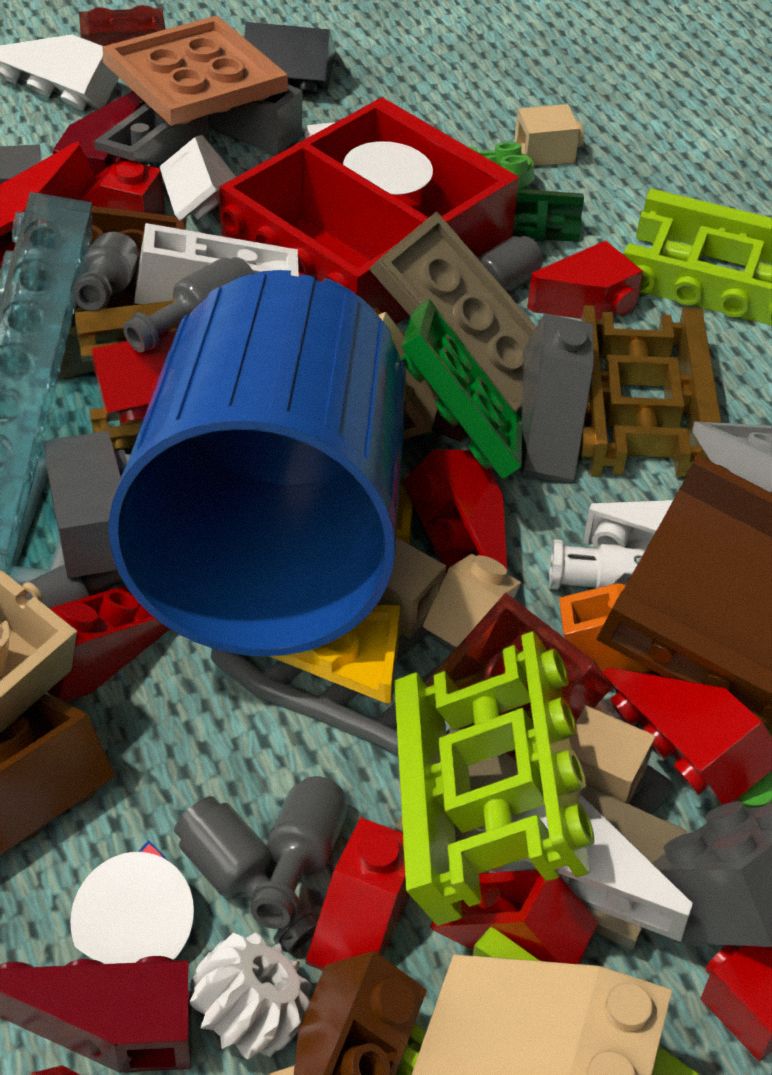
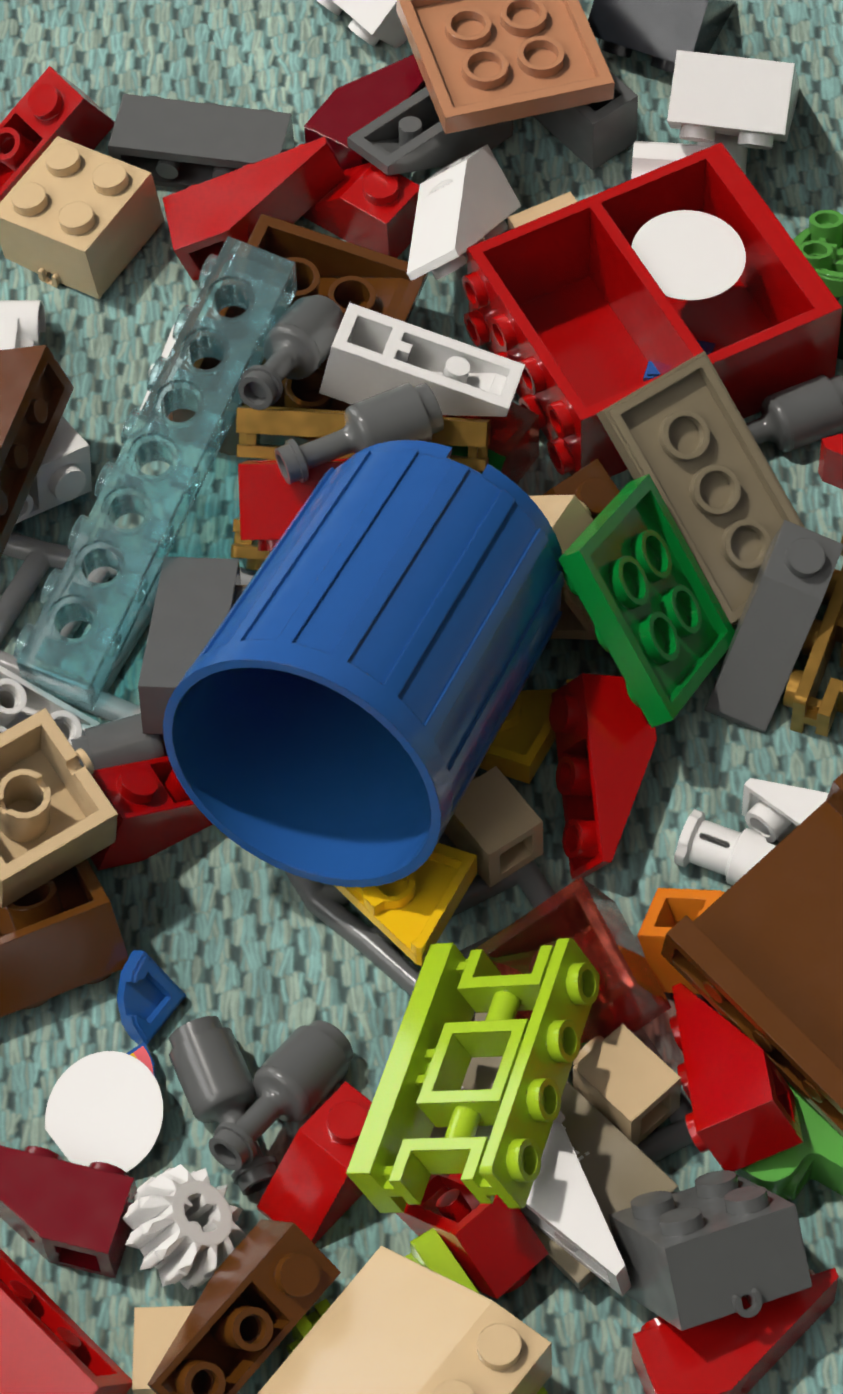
camera: 25 degrees right, 10 degrees up
(136, 800) = (145, 997): none -> blue tile
(372, 69) = (732, 98): none -> white slope
(467, 596) = (558, 857): tan brick -> none

